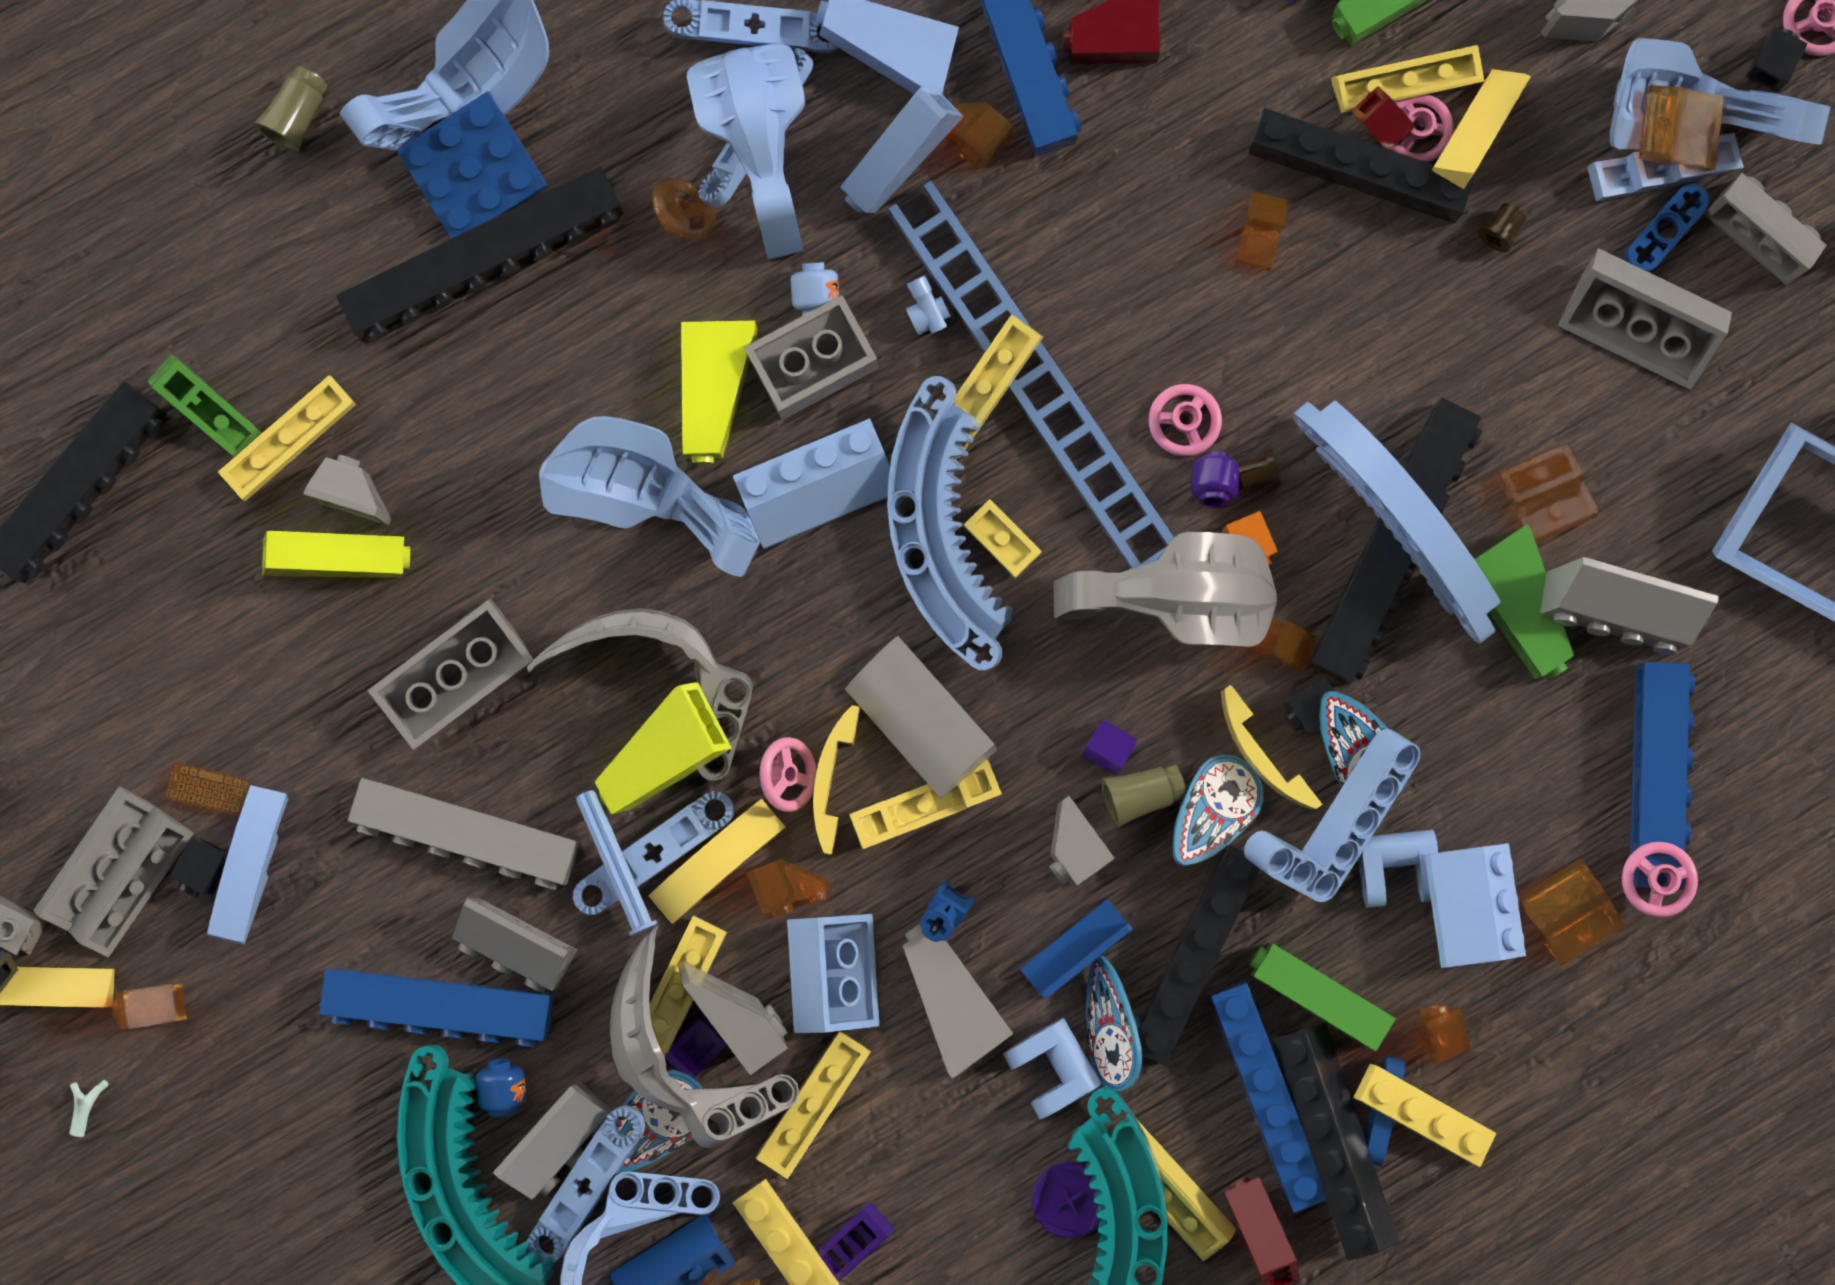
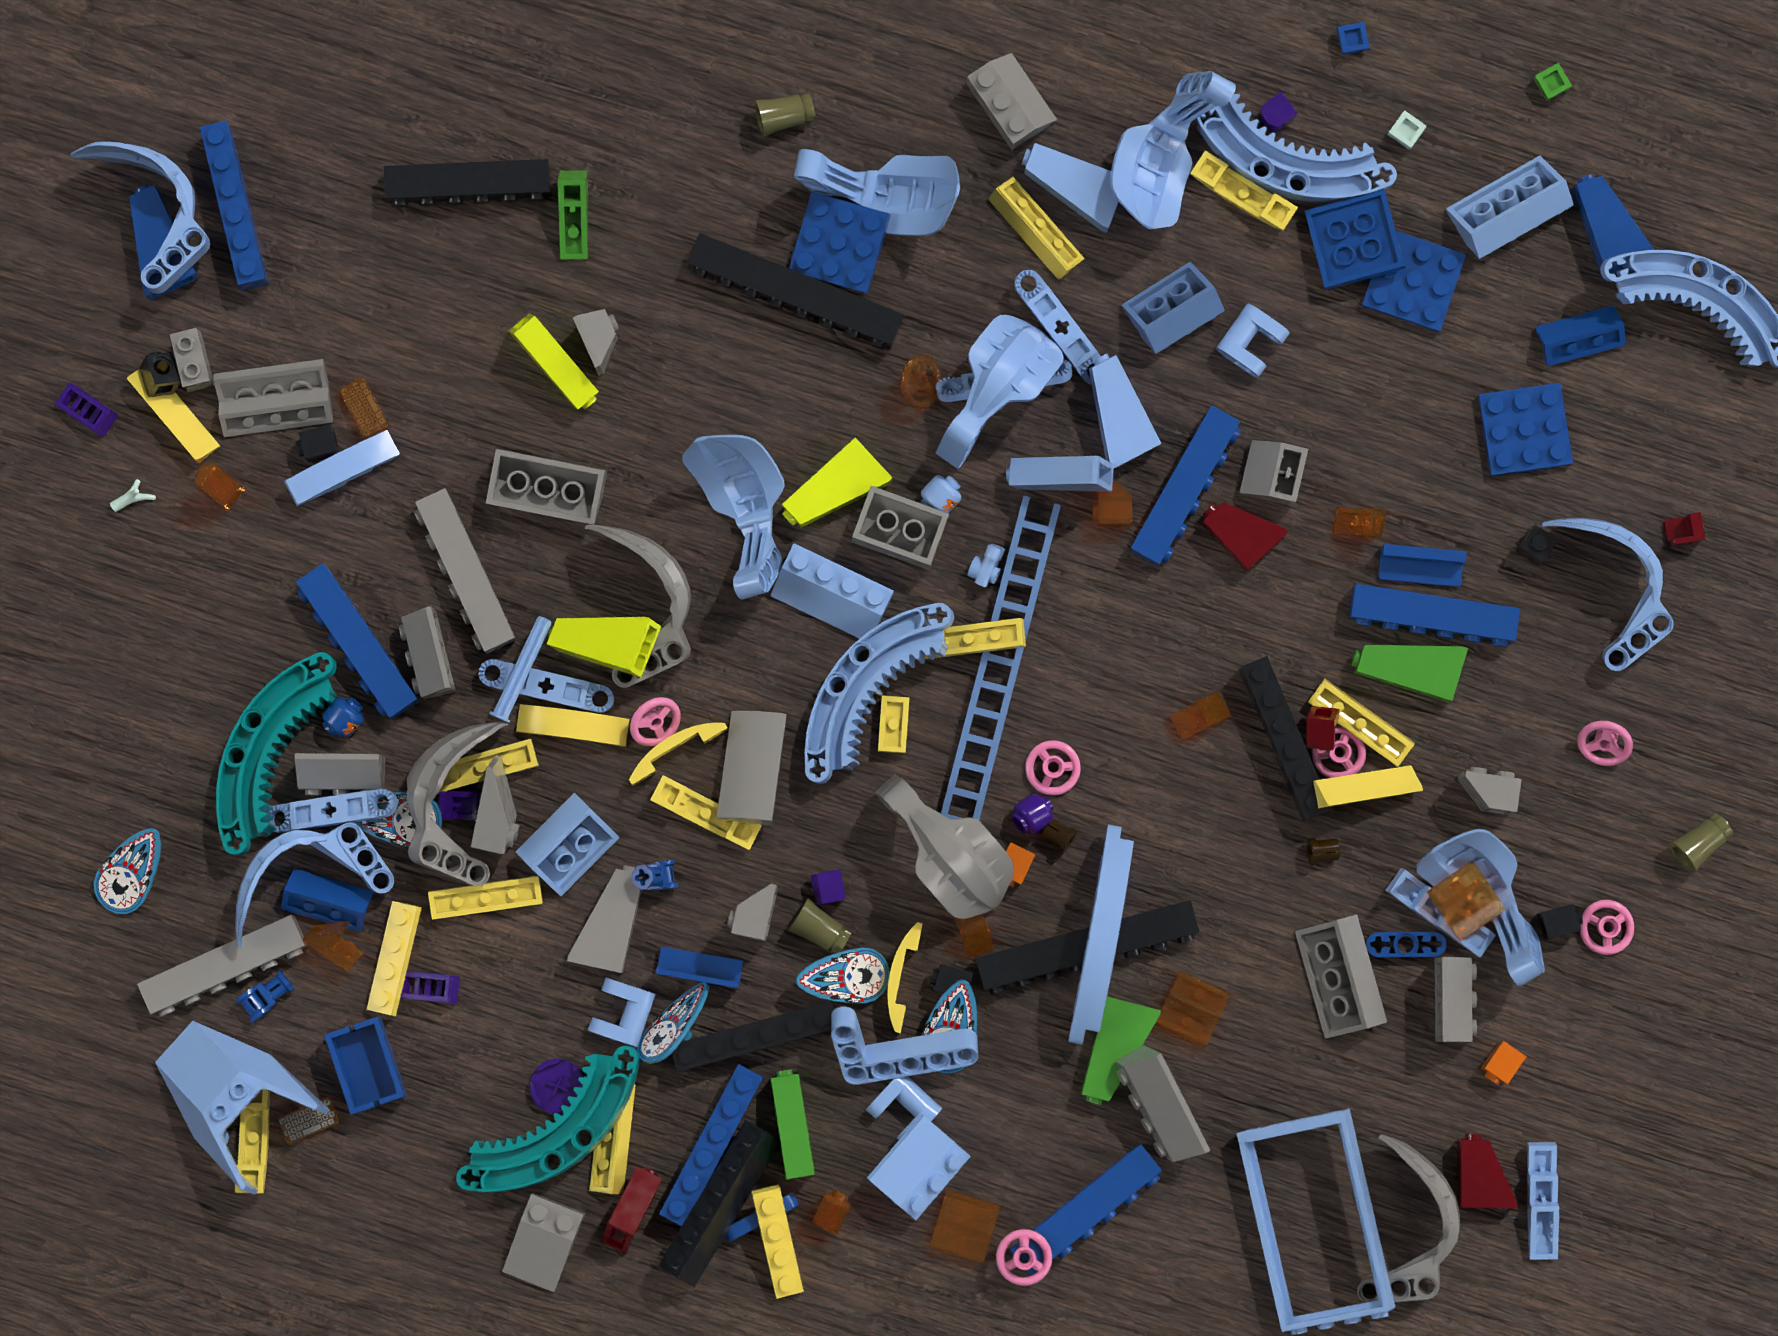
camera: 40 degrees right, 0 degrees up
(287, 438) = (596, 276): light yellow plate -> none
(785, 883) = (592, 773): clear orange slope -> none

